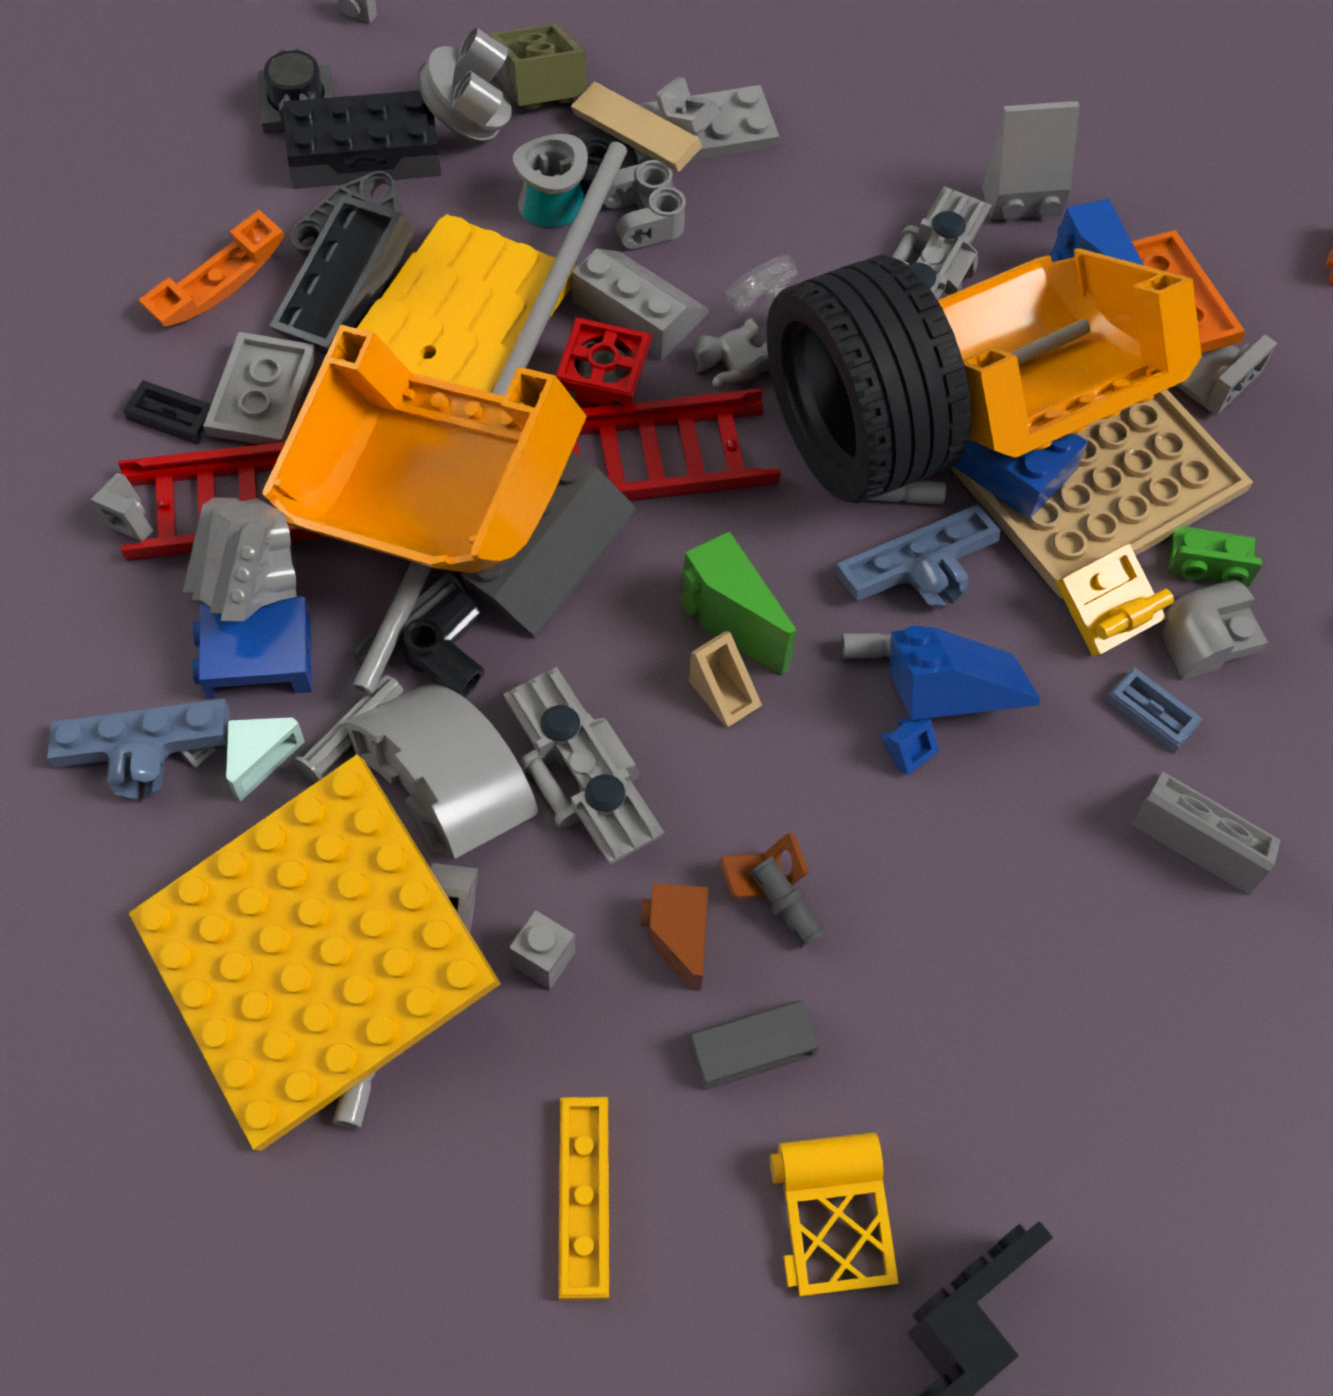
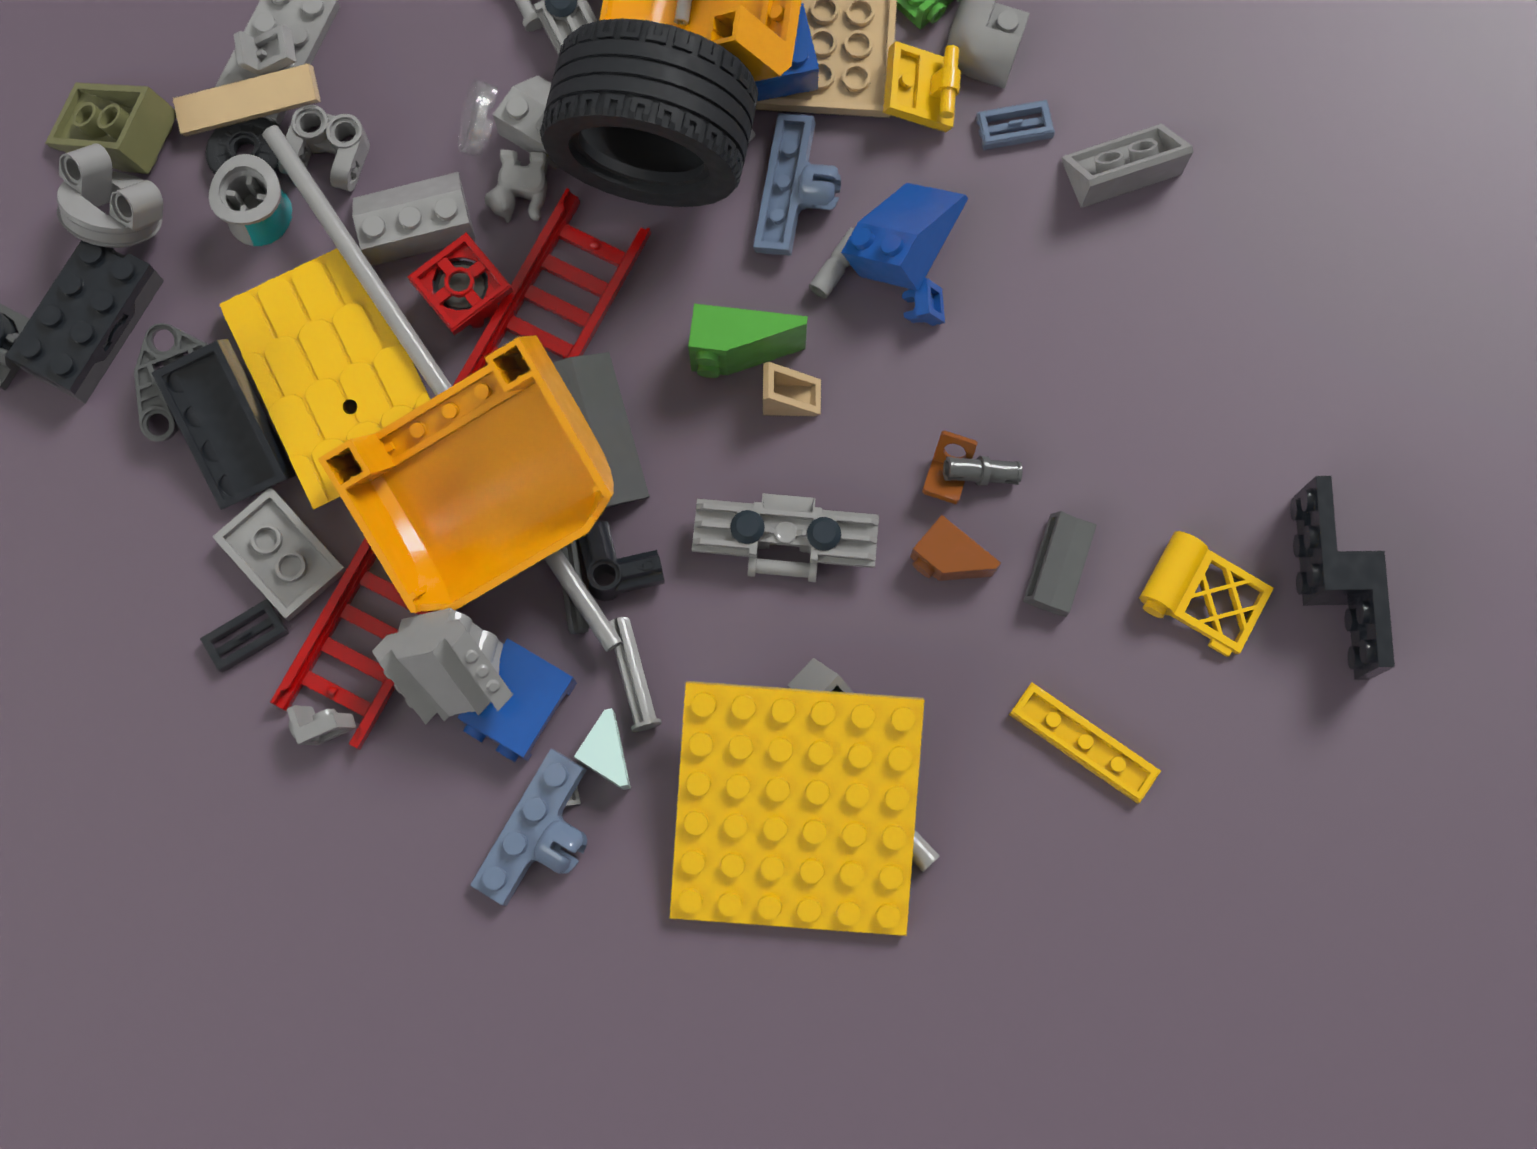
camera: 50 degrees left, 15 degrees up
(219, 276) = (136, 518): orange slope -> none
(451, 764) = (712, 623): light grey panel -> none
(542, 949) = (903, 654): light grey brick -> none

